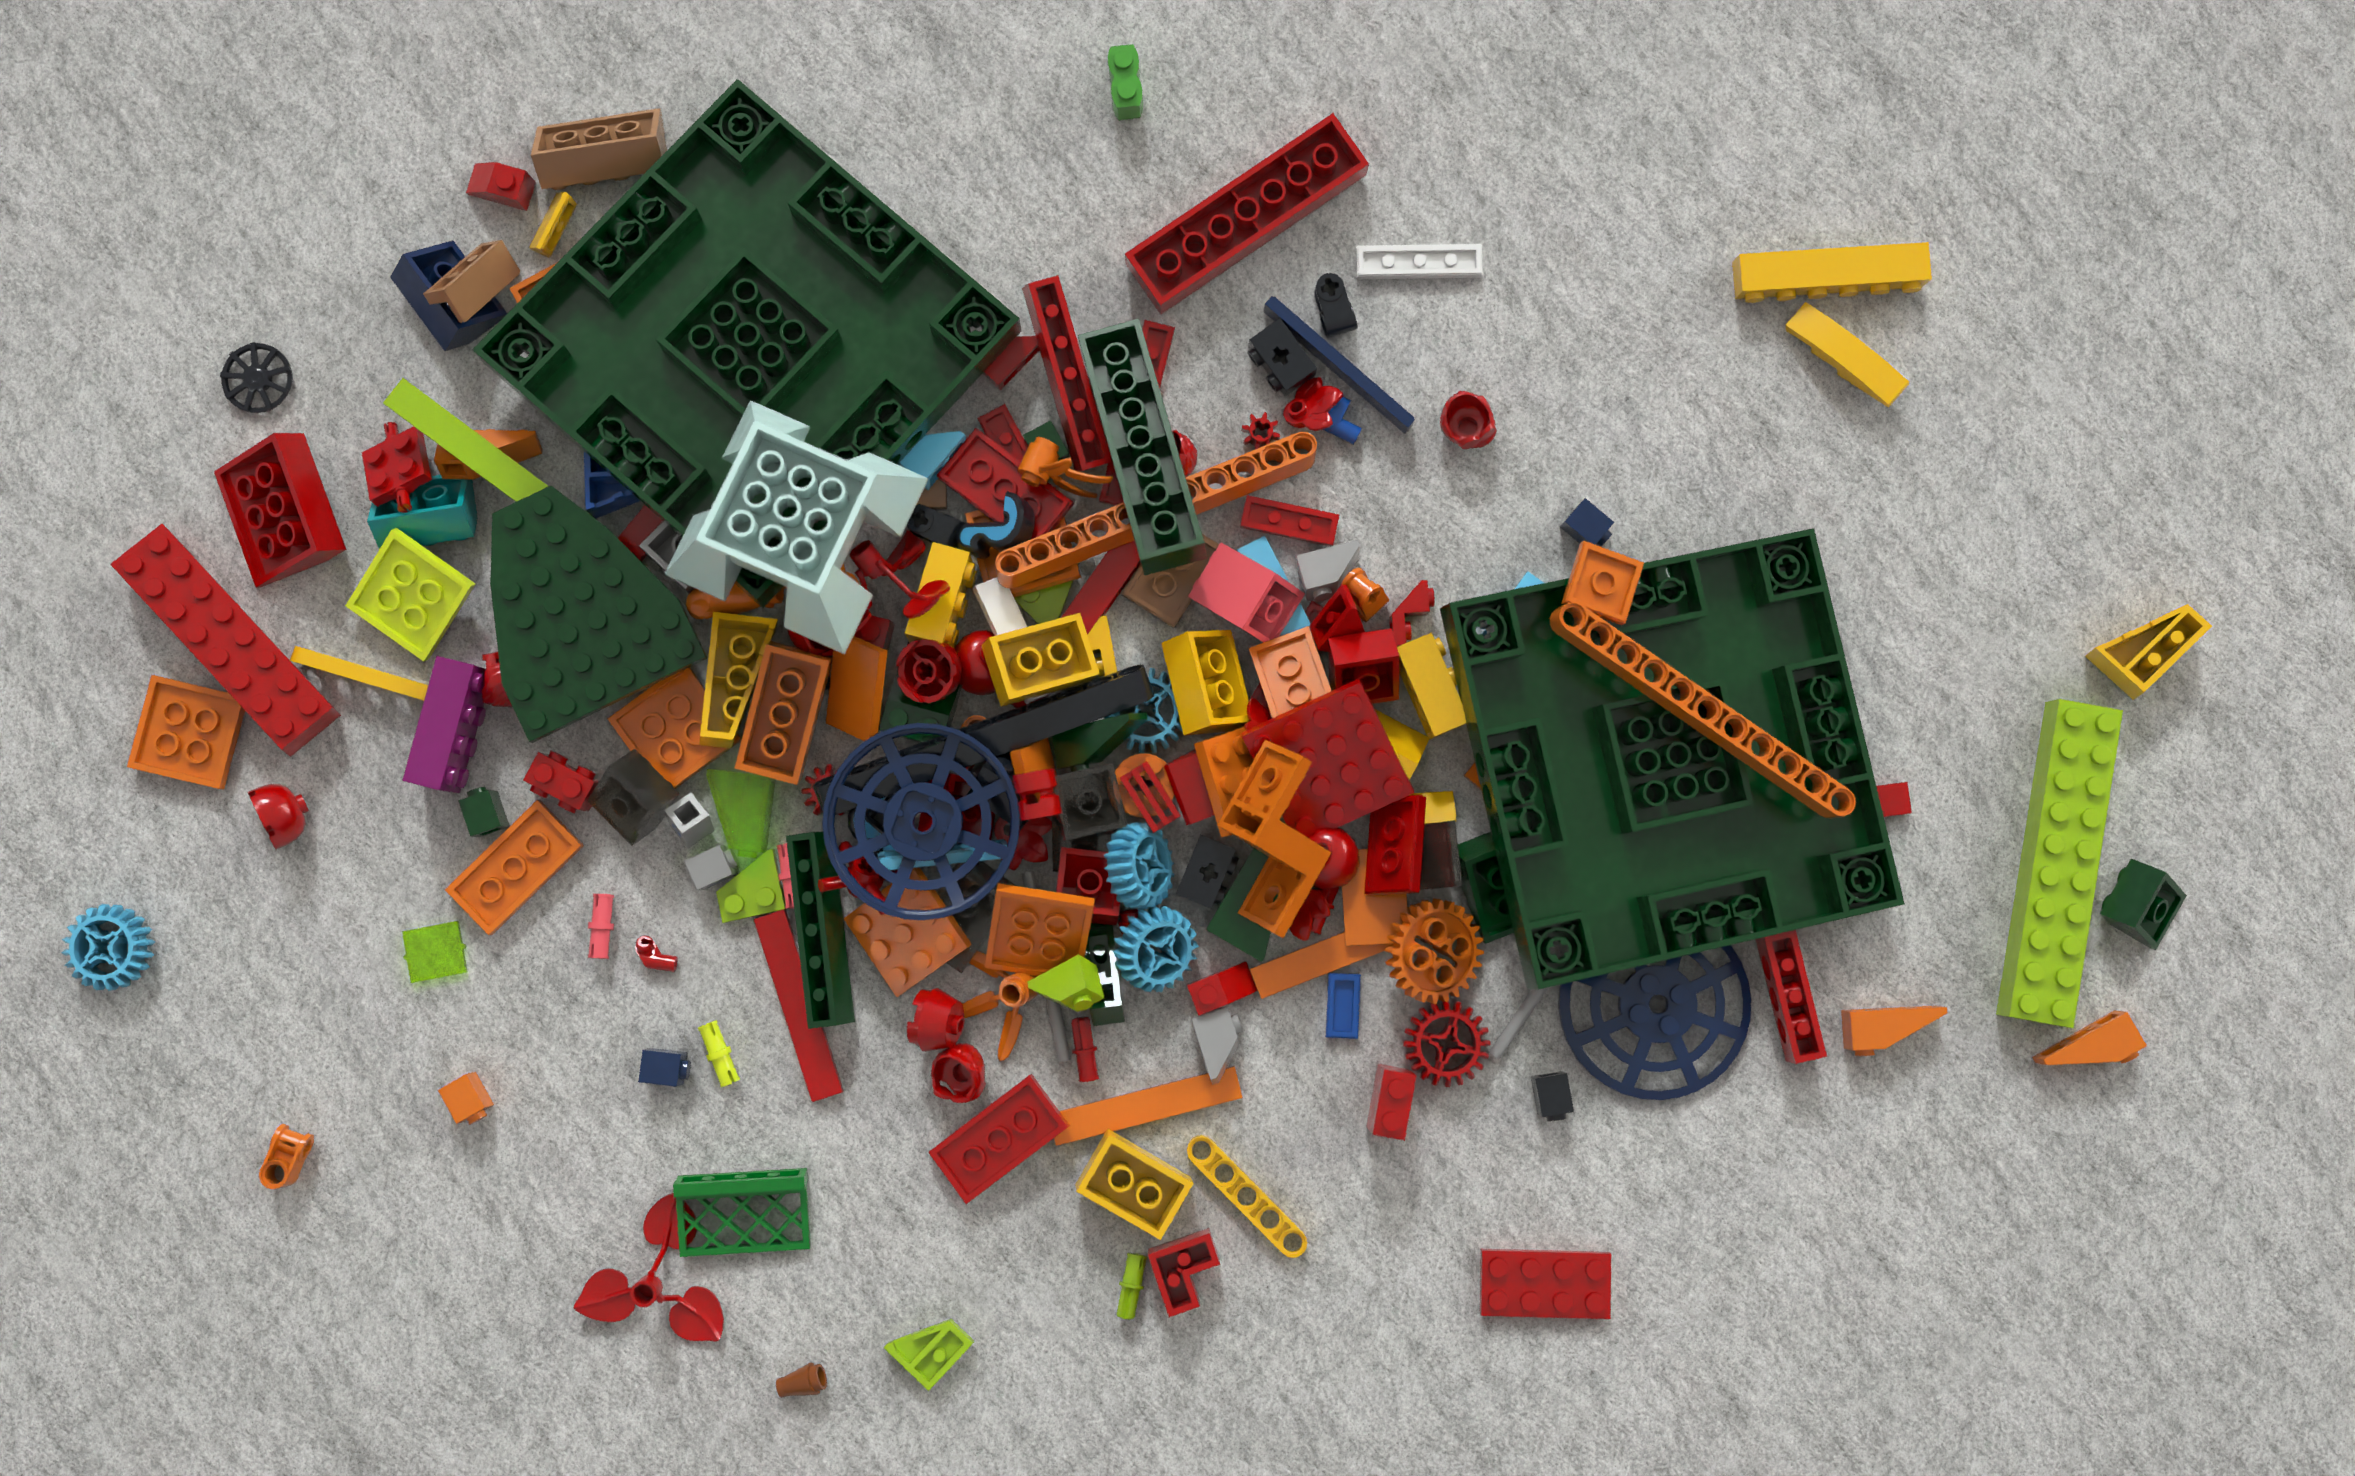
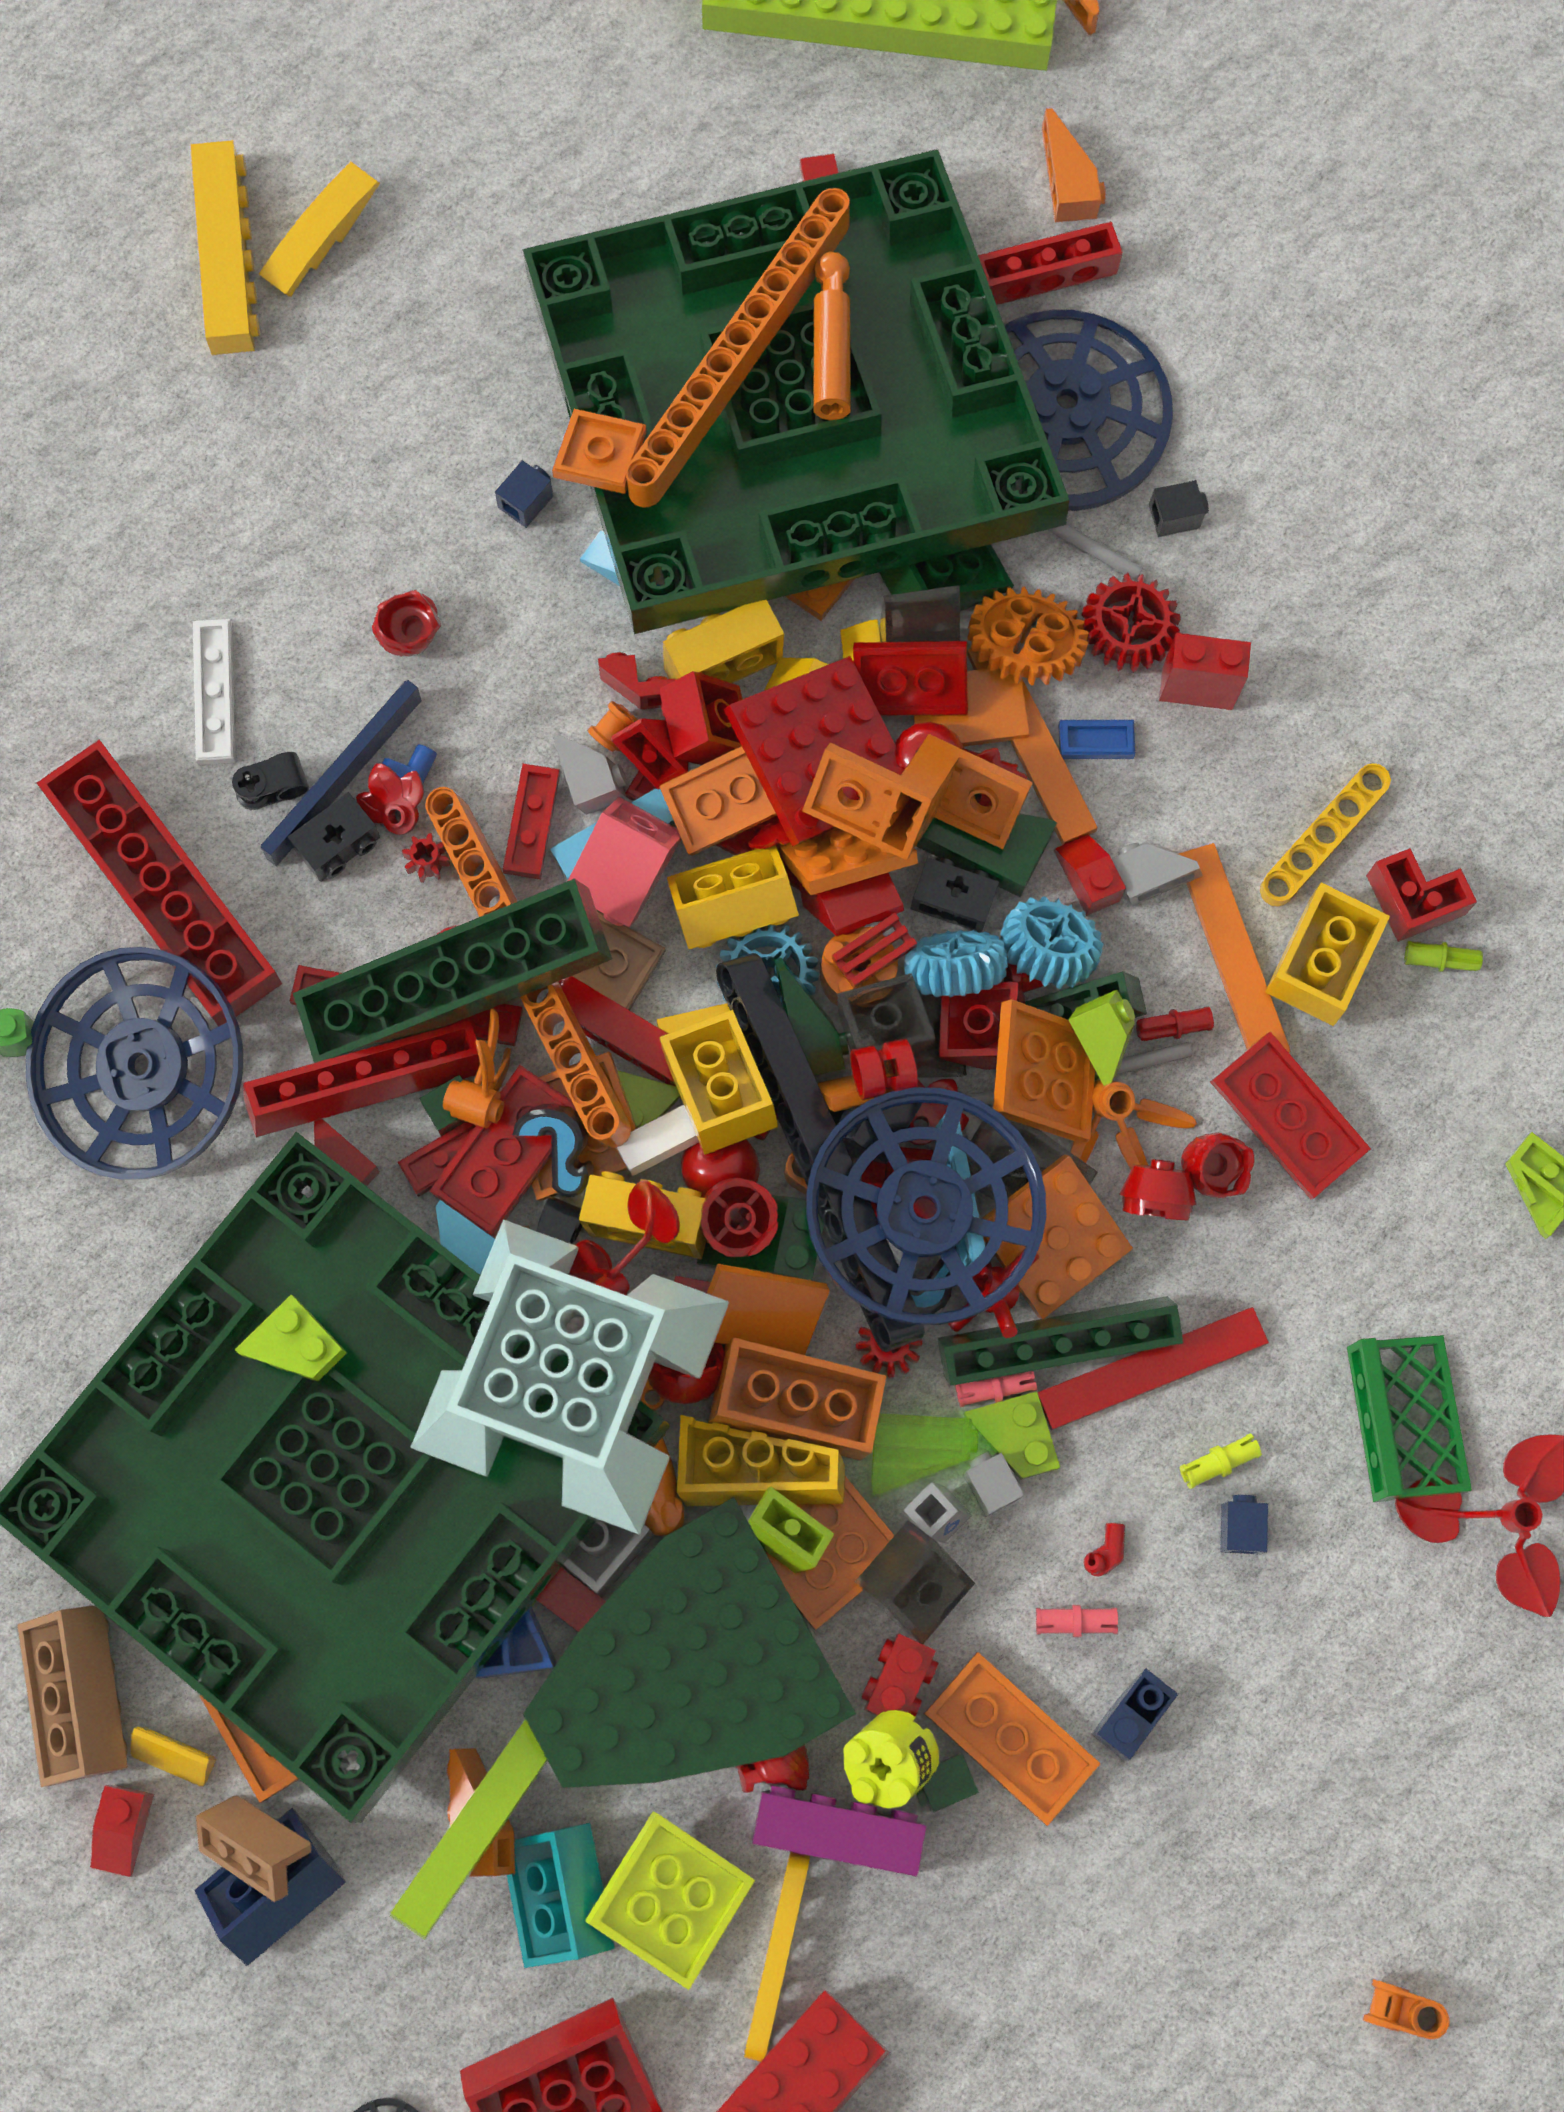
camera: 100 degrees left, 10 degrees down
(279, 813) = (966, 2057): red cylinder -> none
(396, 466) = (502, 1932): red plate -> none
(434, 951) = (1125, 1838): clear neon green piece -> none
(466, 1098) = (1307, 1776): orange brick -> none
(494, 767) = (890, 1759): none -> neon yellow brick
(520, 963) = (1134, 1714): none -> dark blue slope
(674, 698) = (789, 1532): none -> lime slope
(845, 313) = (293, 1342): none -> lime wing
(1088, 182) = (117, 1060): none -> dark blue dish
(1545, 1283) = (1387, 512): red plate -> none
(1706, 792) = (832, 338): none -> orange piece

